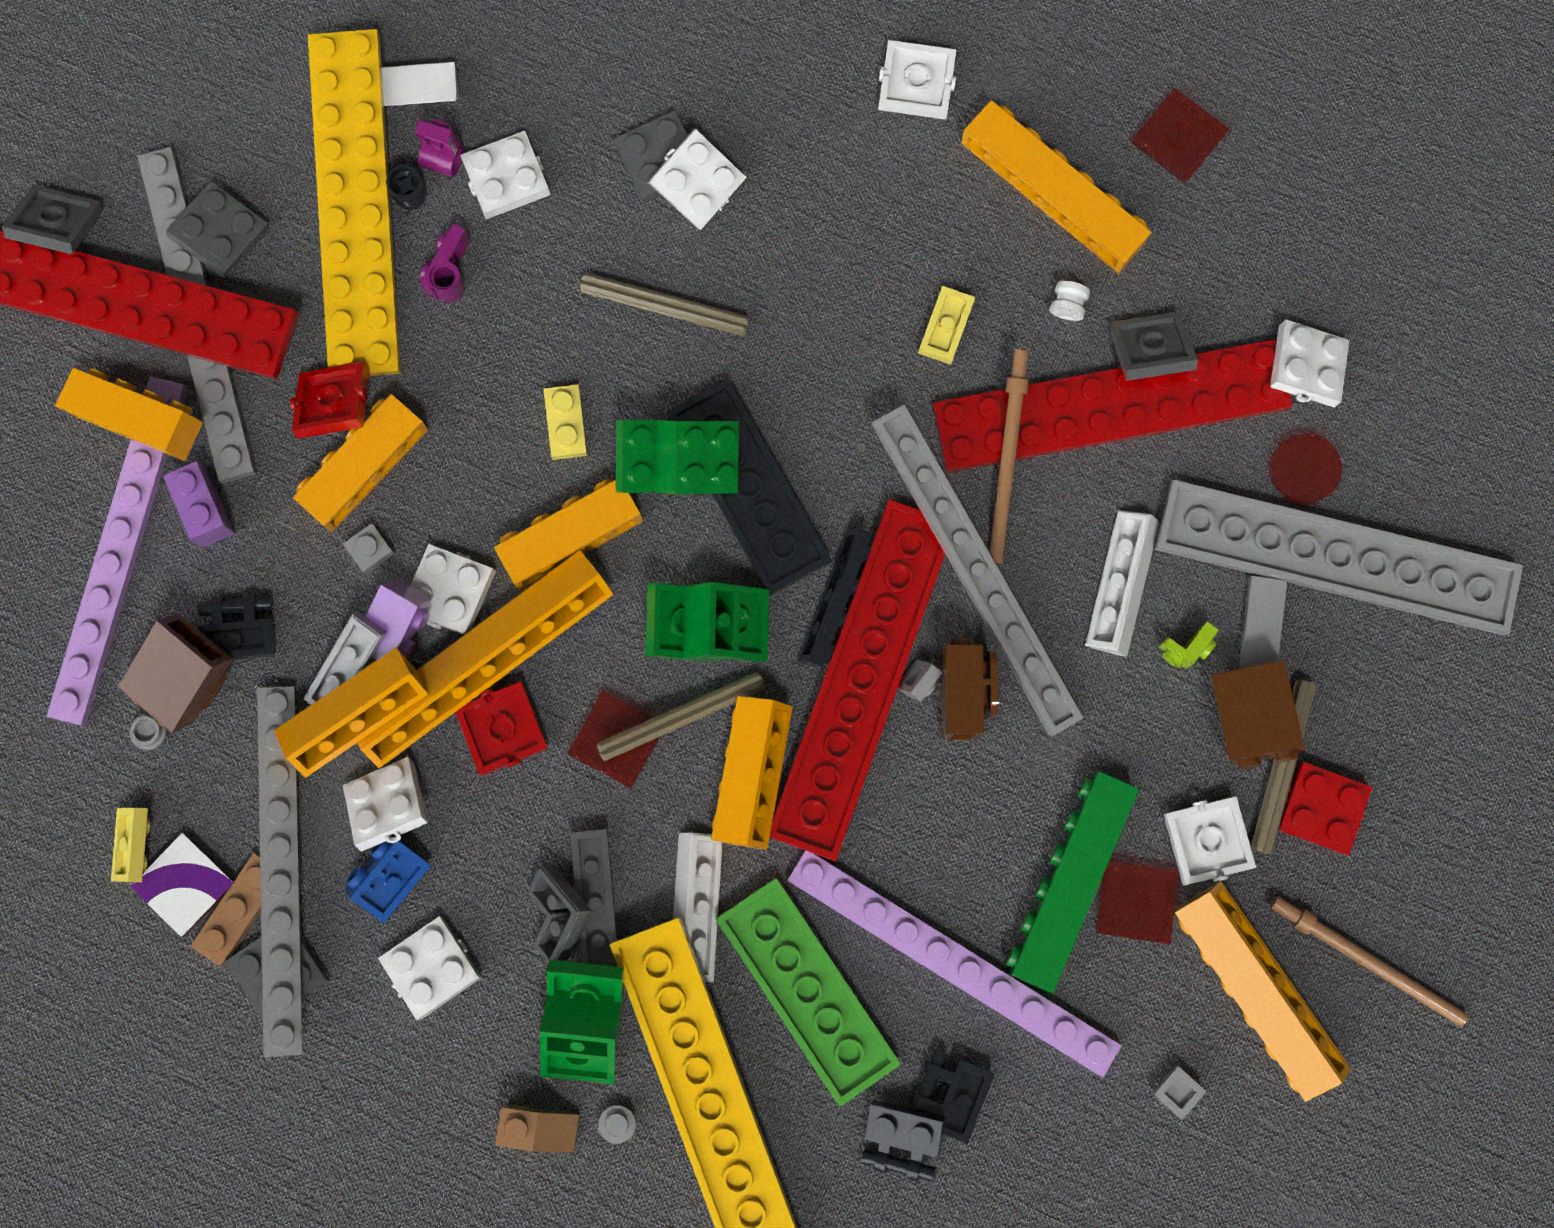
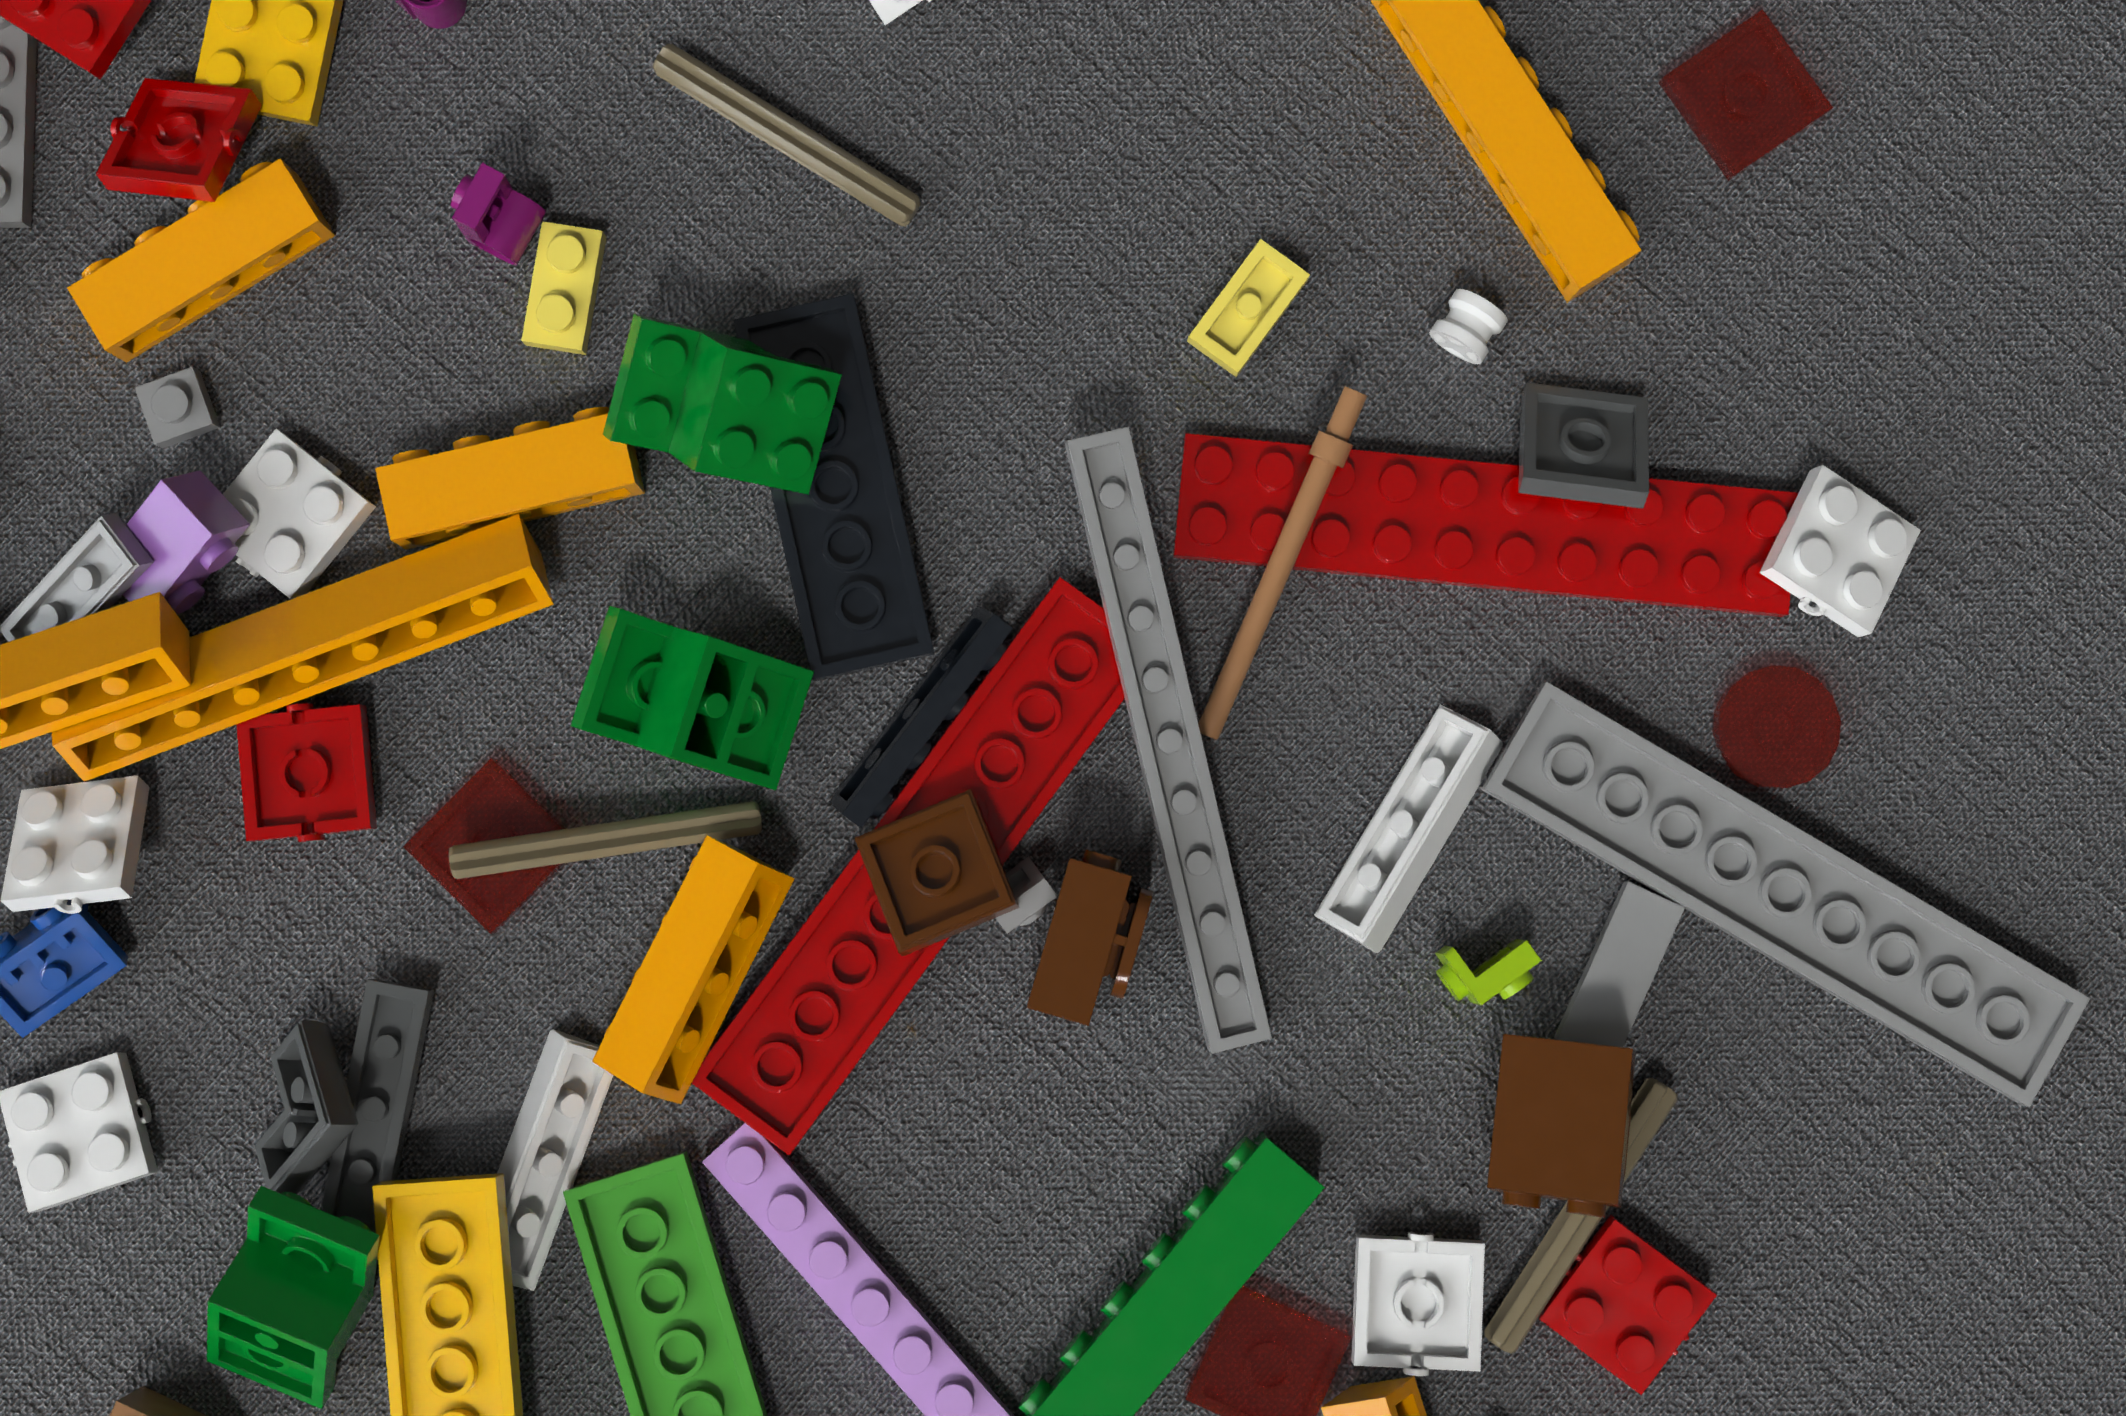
camera: 15 degrees right, 5 degrees up
(519, 391) = (495, 214): none -> magenta plate
(872, 678) = (936, 873): none -> reddish brown tile

